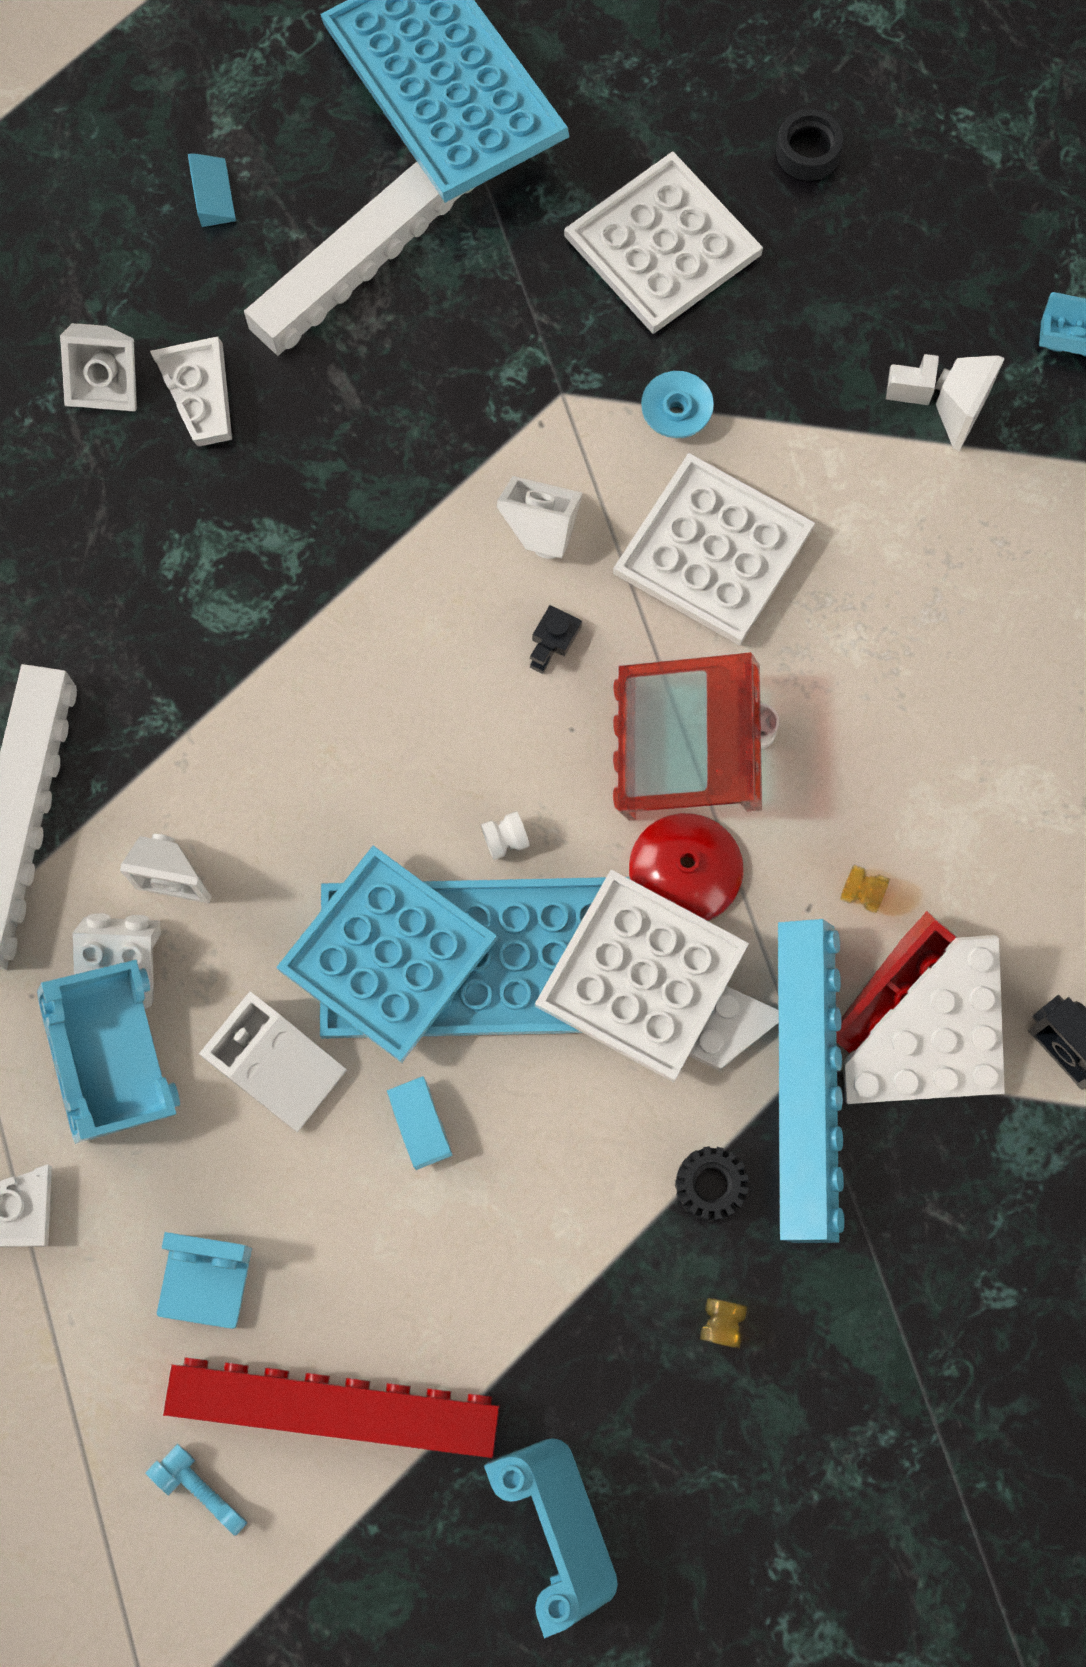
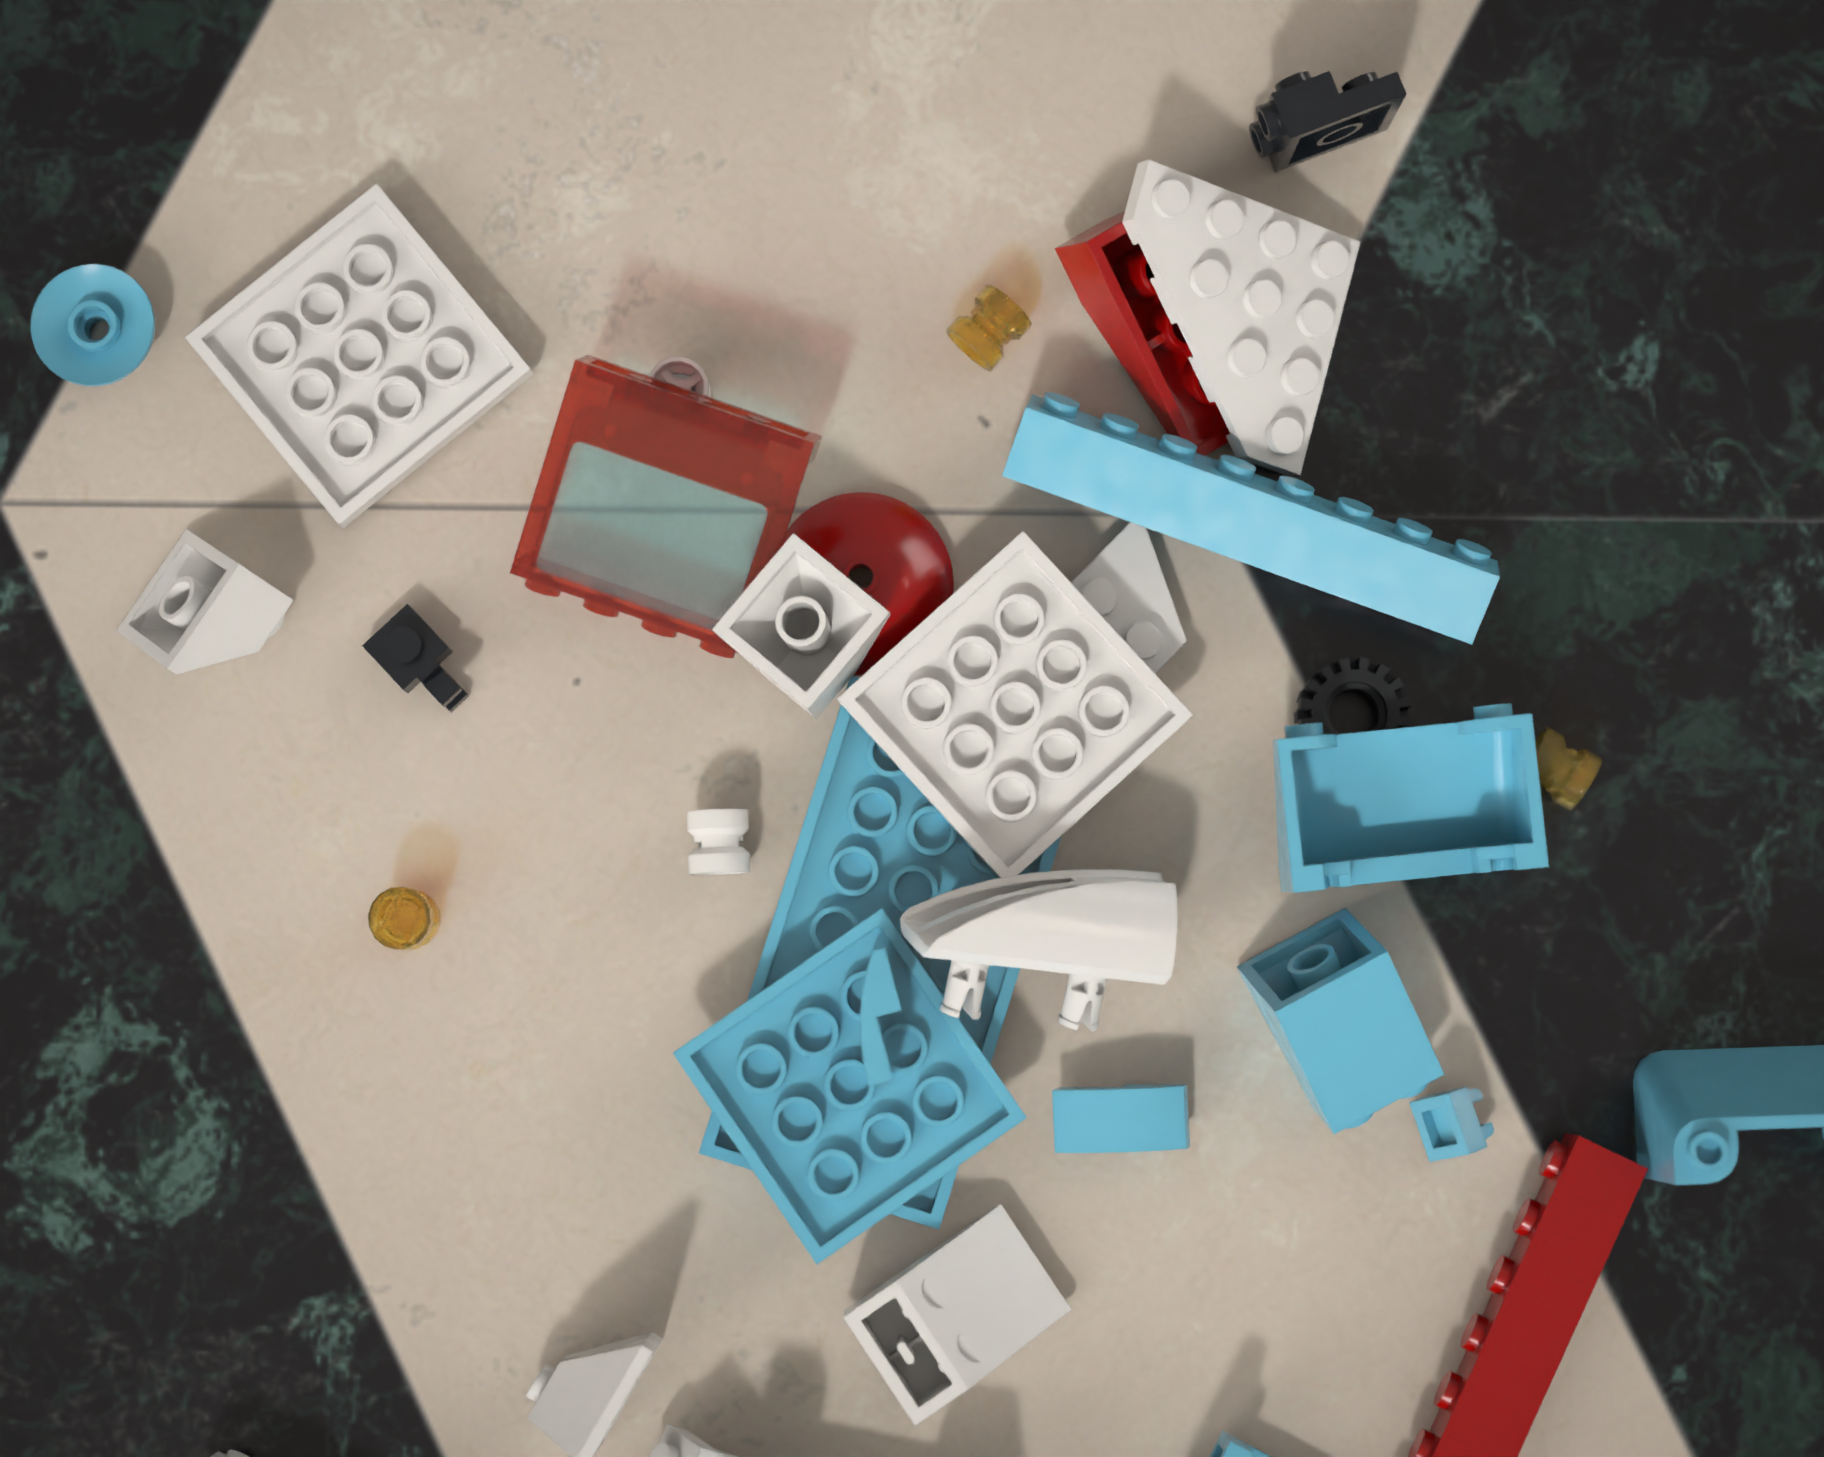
camera: 75 degrees left, 10 degrees up
(400, 670) = (392, 918): none -> clear yellow wheel
(442, 946) = (877, 999): none -> medium azure slope
(480, 1326) = (1450, 1123): none -> medium azure tile
(520, 1034) = (1050, 921): none -> white piece
(520, 1237) = (1342, 1020): none -> medium azure slope
(644, 835) = (803, 625): none -> white slope
(667, 1225) = (1408, 801): none -> medium azure windscreen

